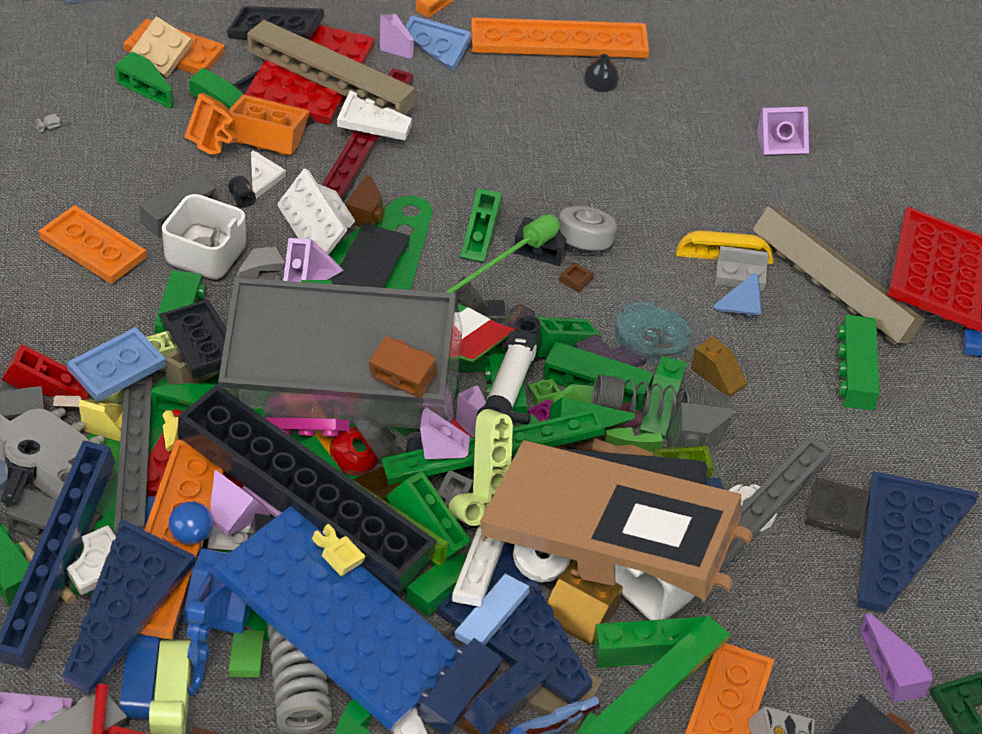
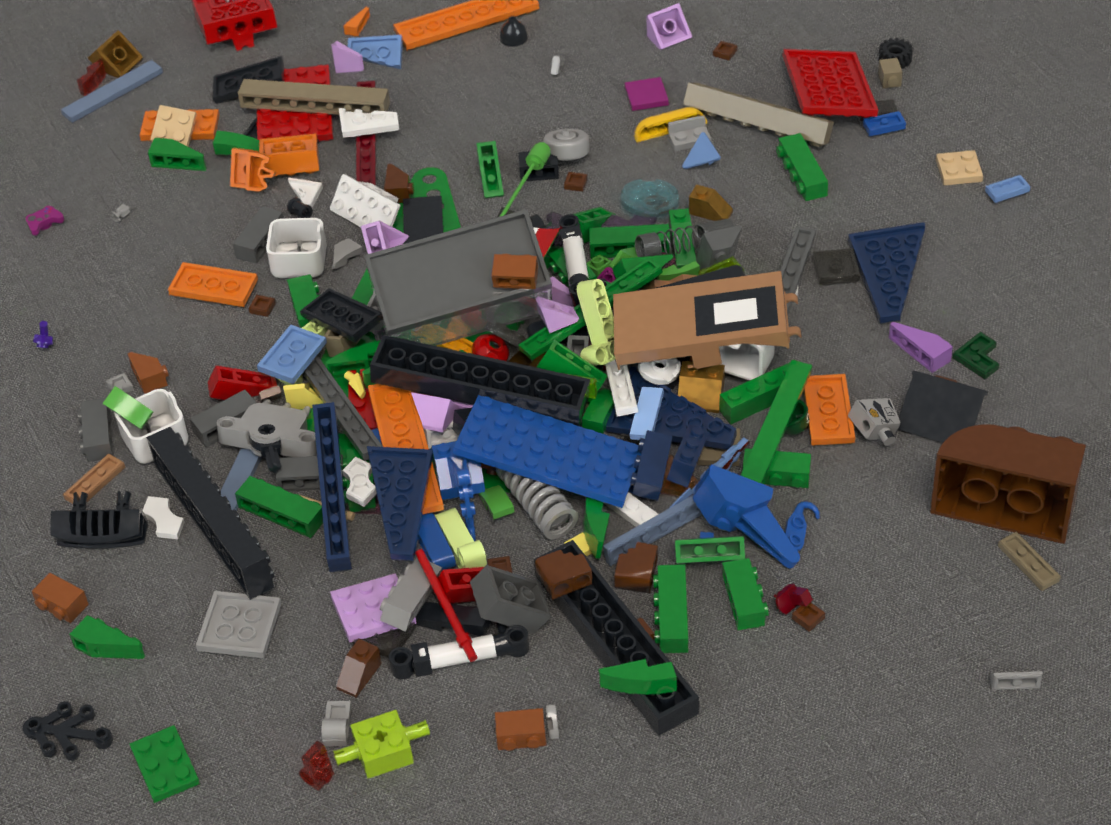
camera: 15 degrees left, 0 degrees up
(132, 290) = (262, 305): none -> reddish brown tile
(190, 522) = (414, 432): blue hair -> none
(307, 426) = (467, 339): dark pink plate -> none
(338, 553) = (529, 410): light yellow plate -> none
(631, 126) = (556, 63): none -> light grey tile
(681, 700) = (799, 419): none -> dark green helmet
(717, 201) = (646, 93): none -> magenta tile
(839, 183) = (725, 50): none -> reddish brown tile

